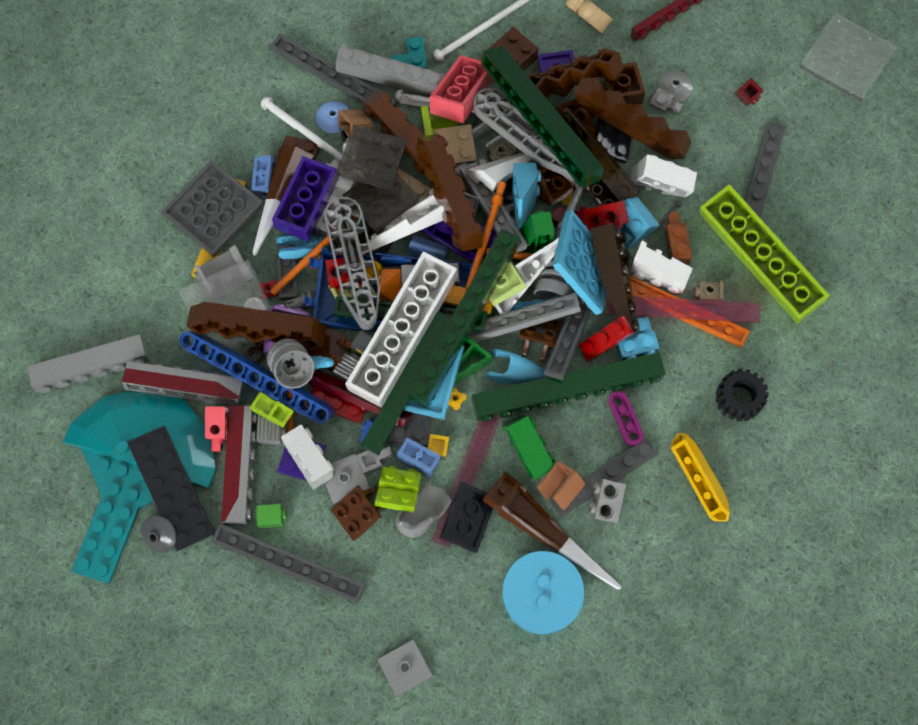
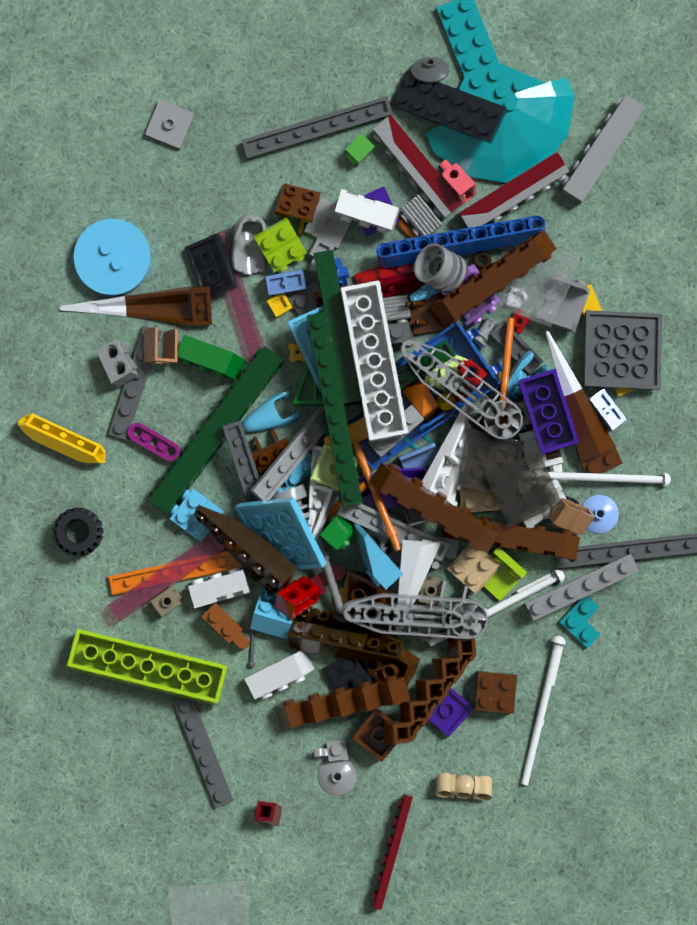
camera: 140 degrees right, 15 degrees up
(271, 410) = (426, 224): lime slope -> none
(457, 89) = (507, 616): coral brick -> none
(542, 117) = (414, 634): dark green brick -> none
(606, 338) = (216, 490): red plate -> none

